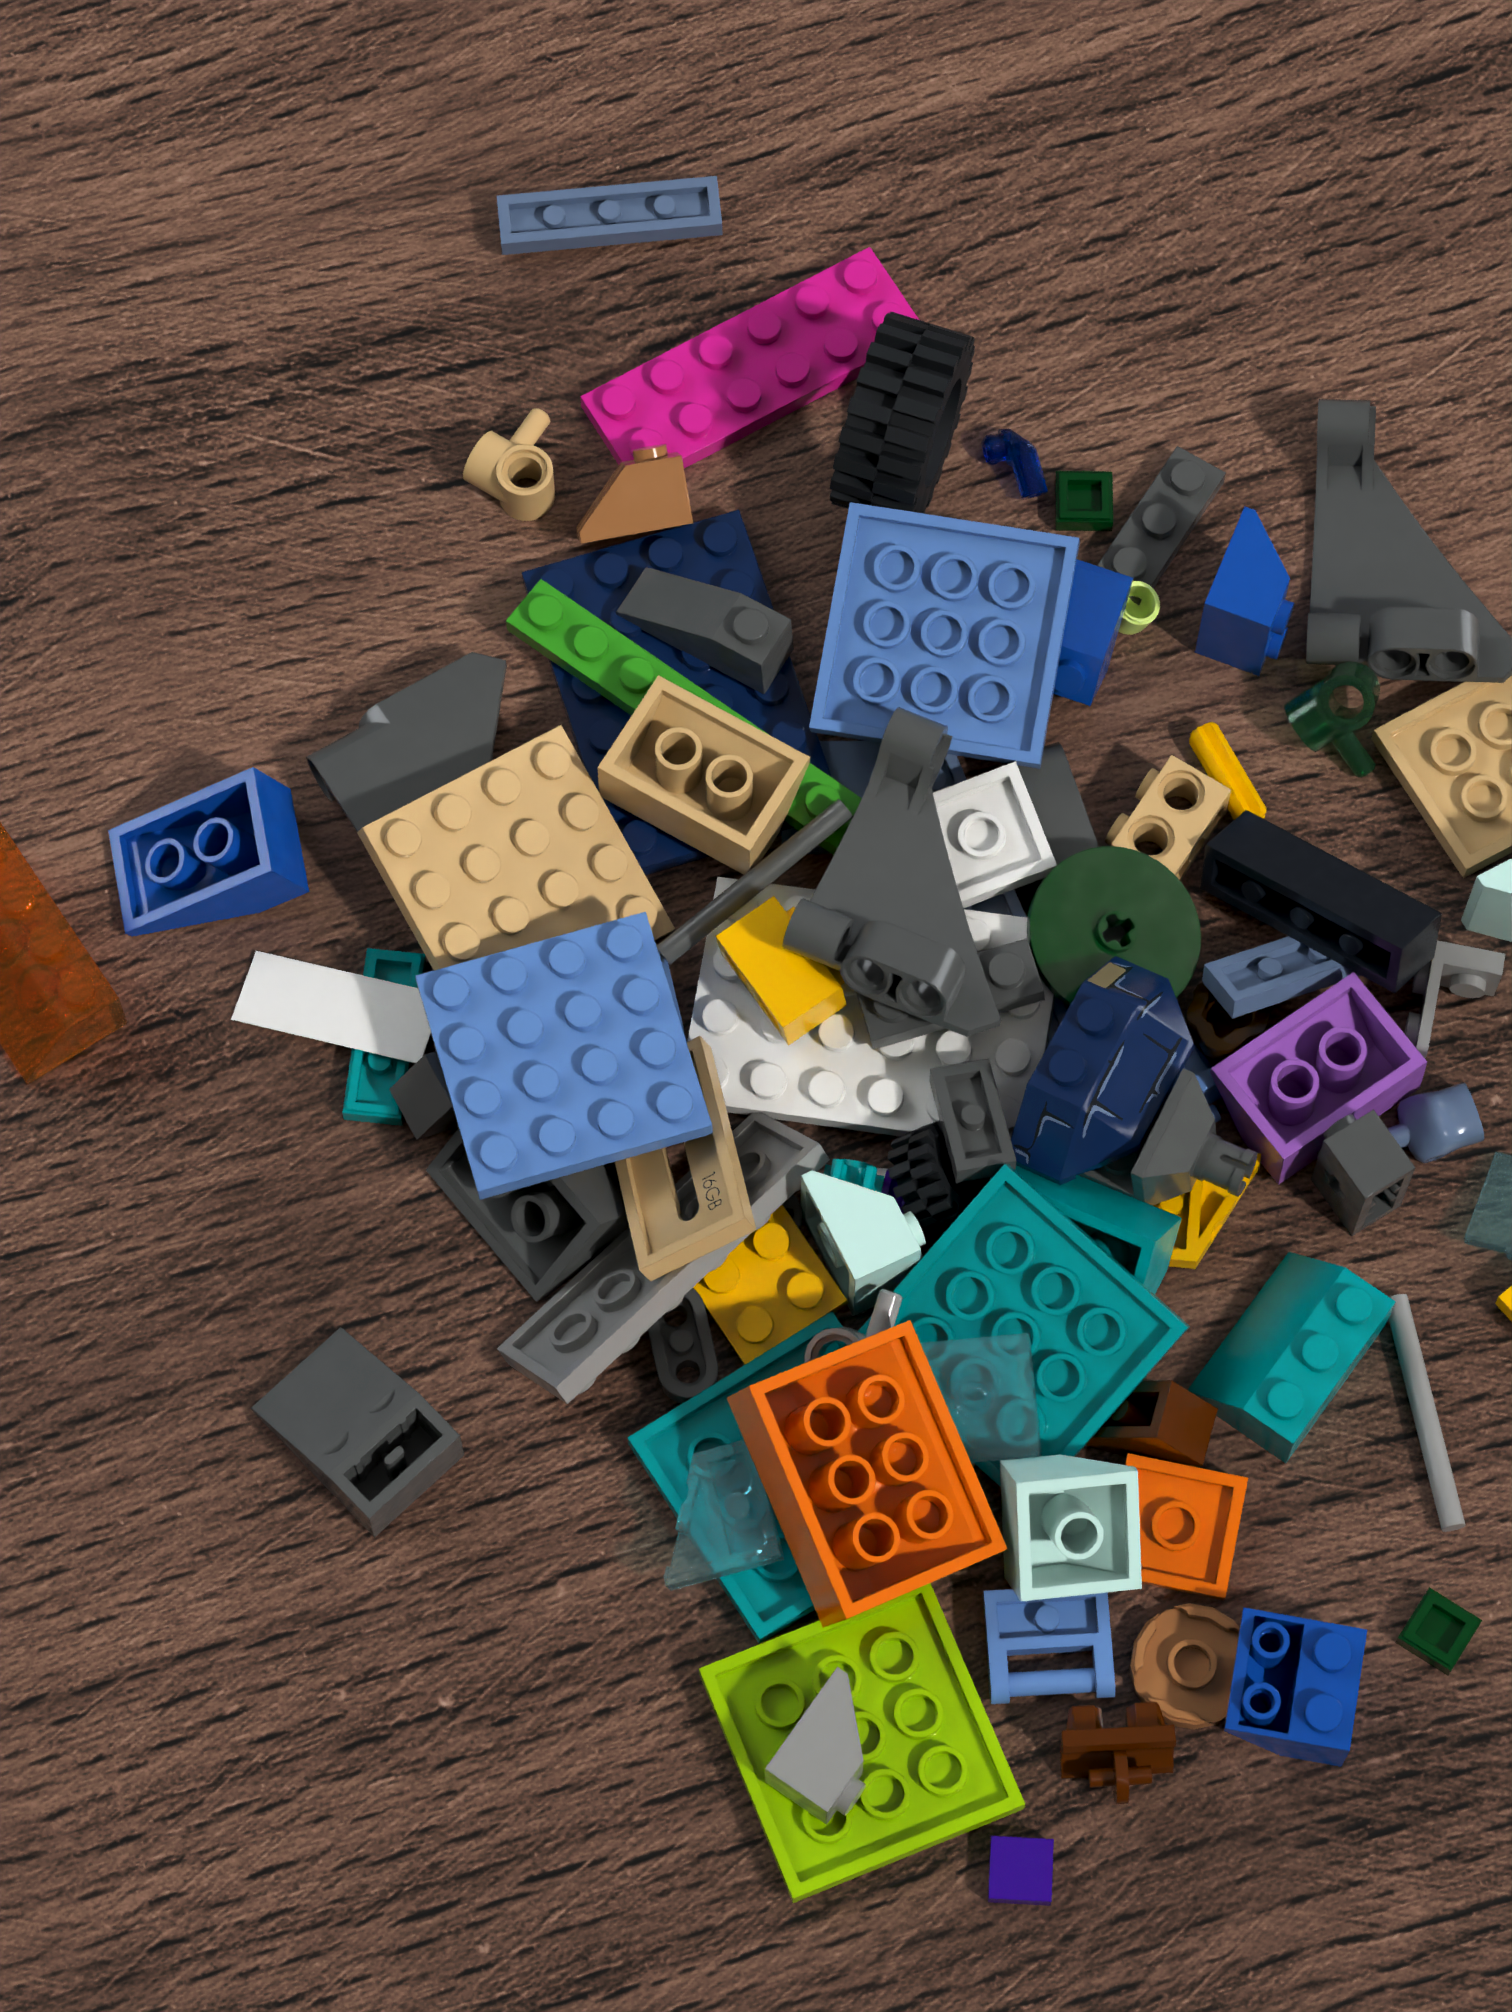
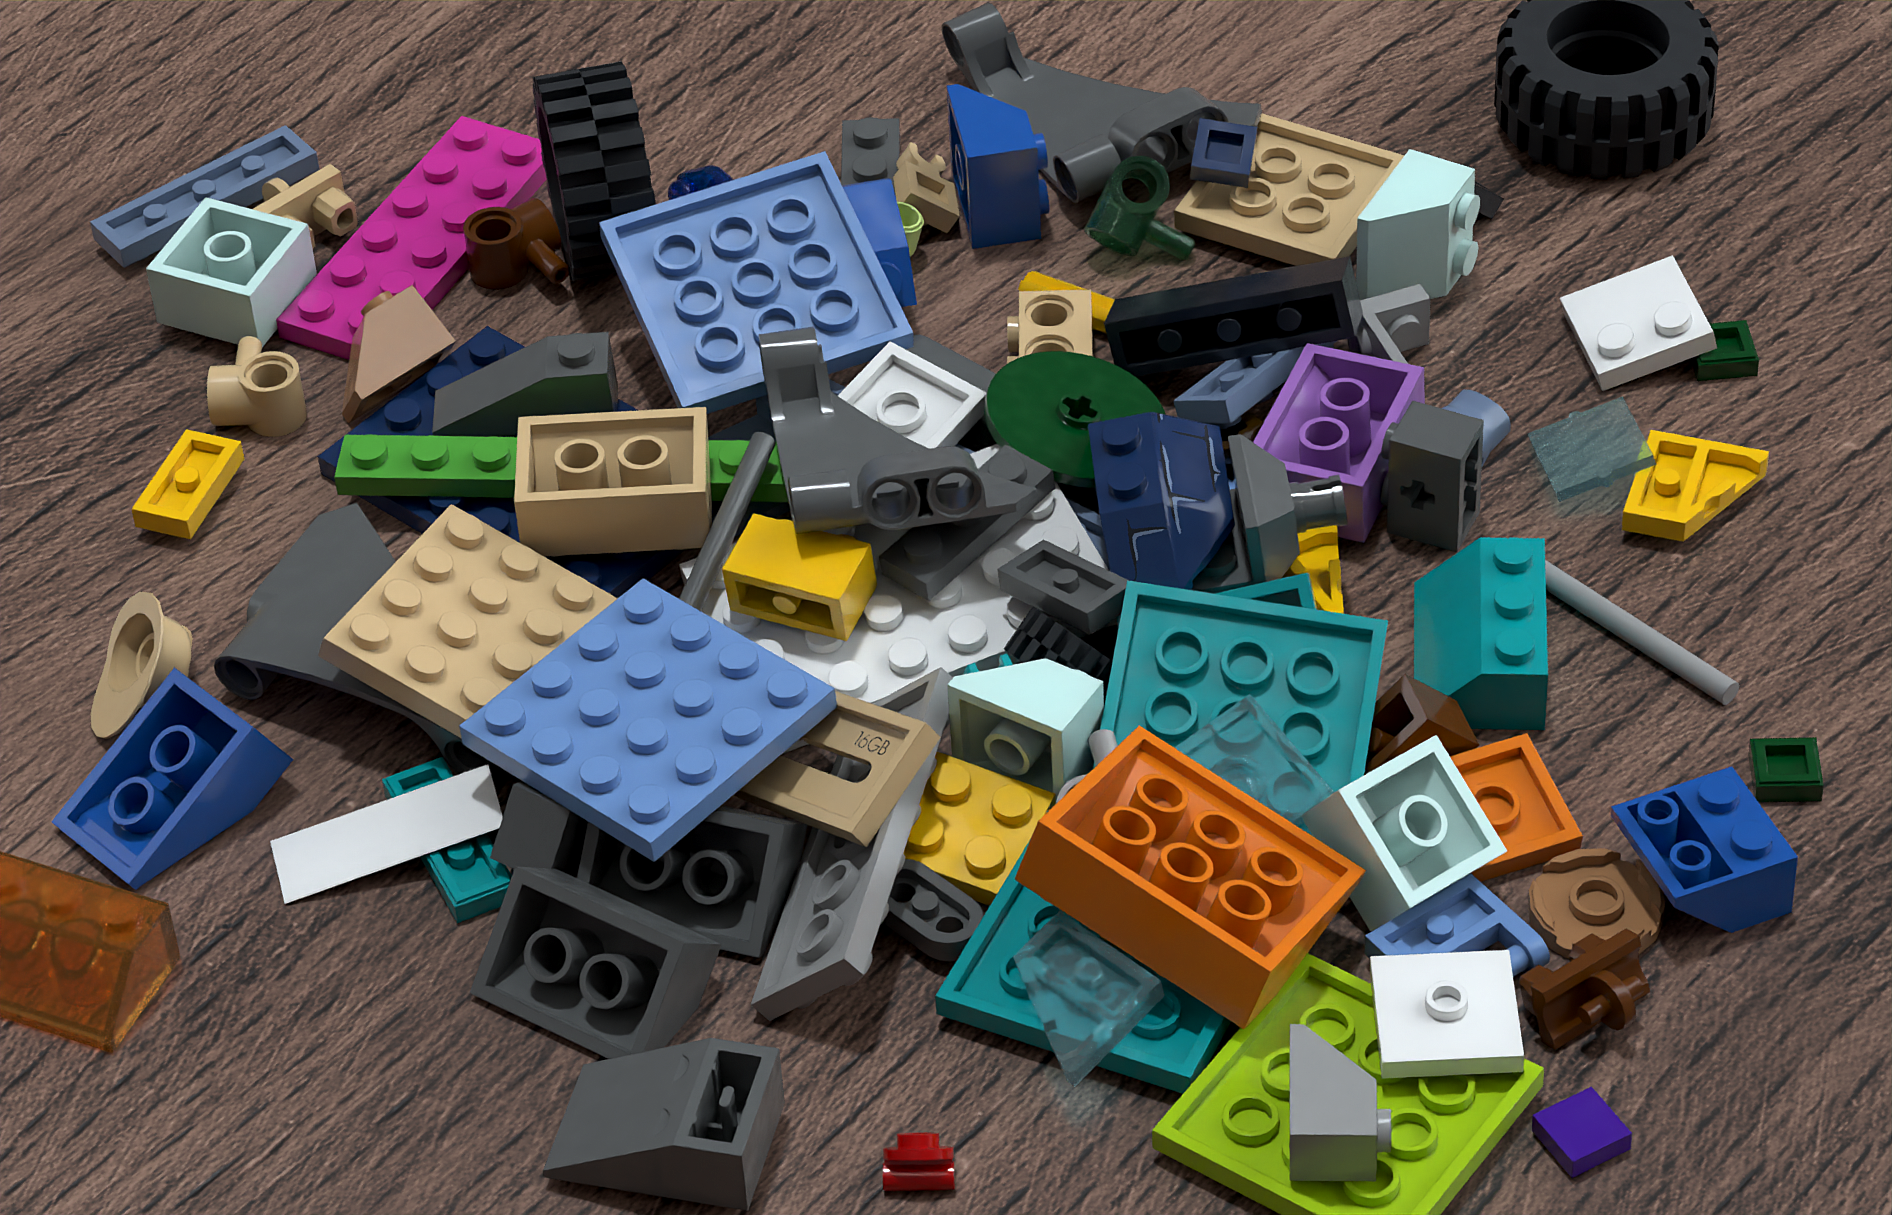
camera: 30 degrees left, 25 degrees down
(253, 724) = (139, 658): none -> tan piece
(404, 1240) = (592, 964): none -> dark grey slope
(406, 540) = (188, 484): none -> yellow plate
(521, 1577) = (918, 1164): none -> red plate
(567, 332) = (231, 272): none -> light aqua brick
(667, 283) = (314, 201): none -> tan hips
(827, 417) = (508, 240): none -> reddish brown piece
(982, 1711) = (1446, 1014): none -> white plate
(1186, 571) = (923, 188): none -> tan plate
(1447, 702) = (1223, 153): none -> dark blue plate

